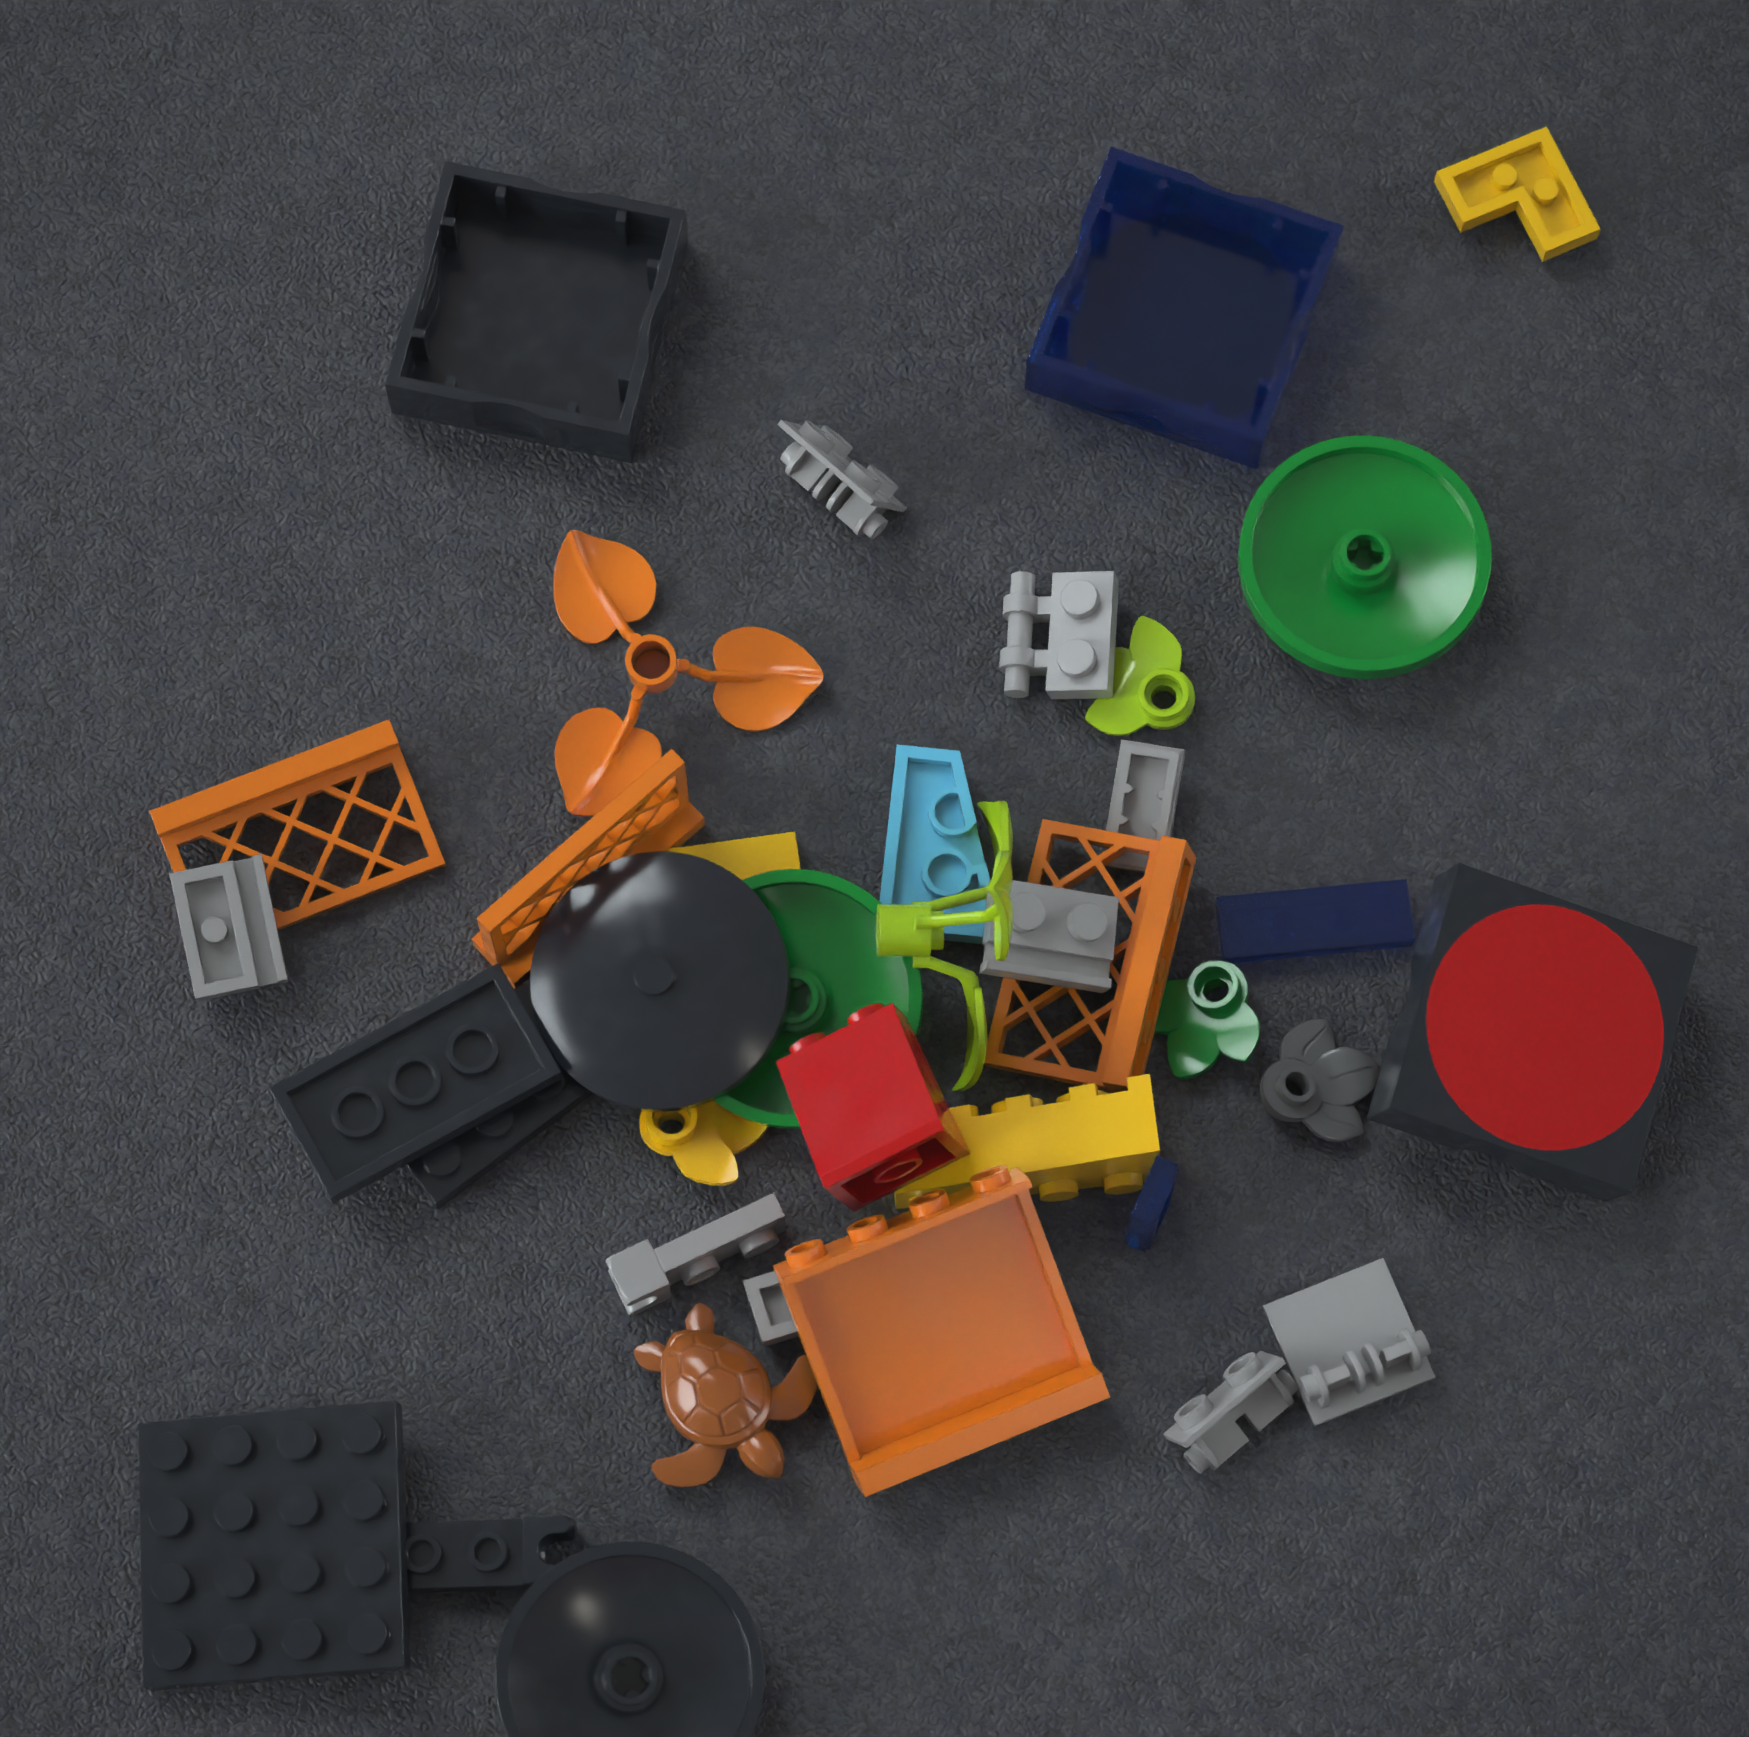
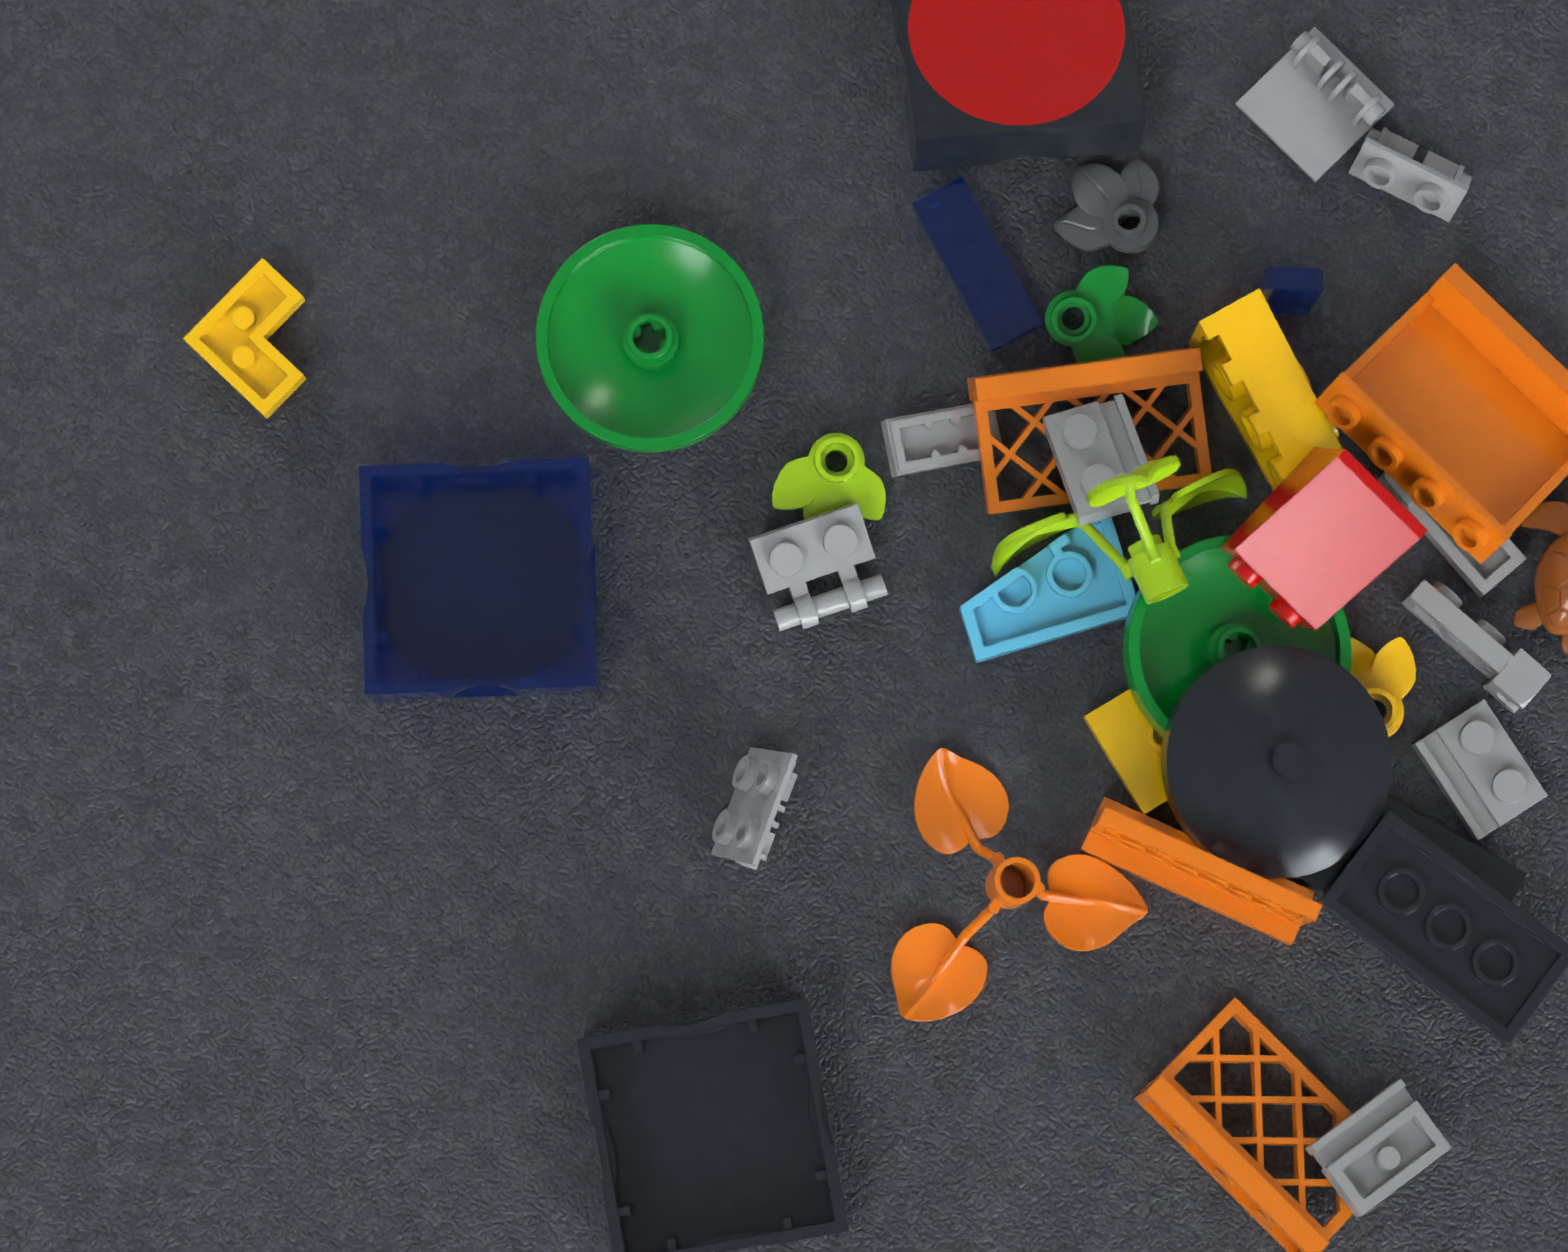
camera: 110 degrees left, 10 degrees up
(564, 1207) = (1479, 770): none -> light grey plate

